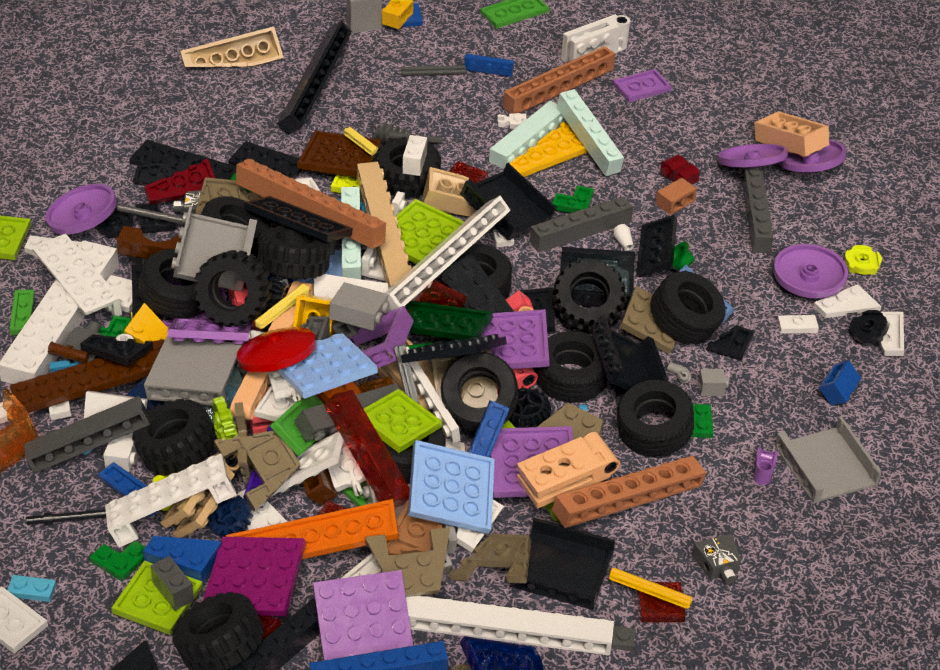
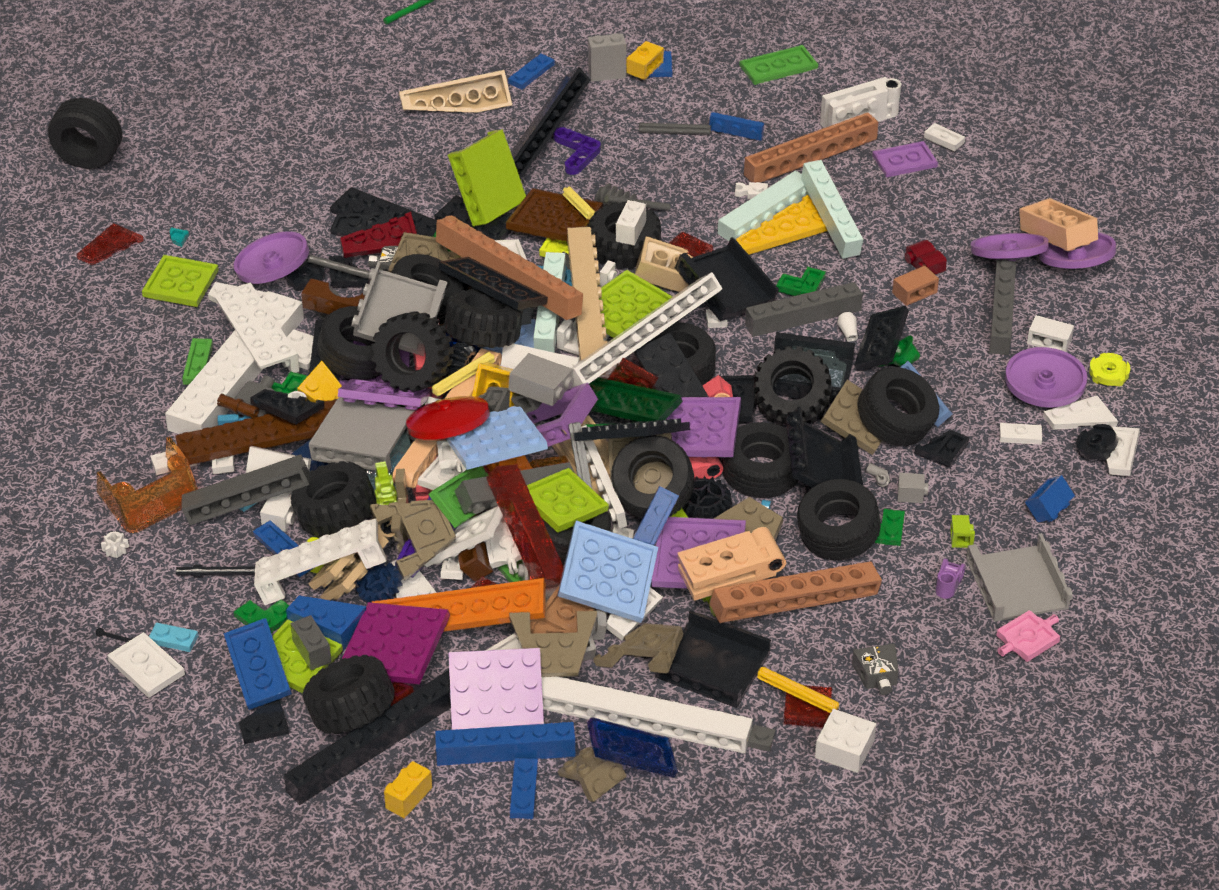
camera: 10 degrees right, 0 degrees up
(121, 609) = (257, 663): none -> blue plate
(275, 123) = (487, 178): none -> lime panel
(296, 27) = (531, 71): none -> blue plate
(297, 496) = (451, 569): none -> white plate
(357, 91) = (587, 147): none -> dark purple beam
(672, 64) = (944, 137): none -> white plate
(704, 634) = (845, 740): none -> white brick
(767, 420) = (961, 531): none -> lime brick
(804, 231) = (1050, 333): none -> white brick
(849, 514) = (1028, 635): none -> bright pink plate

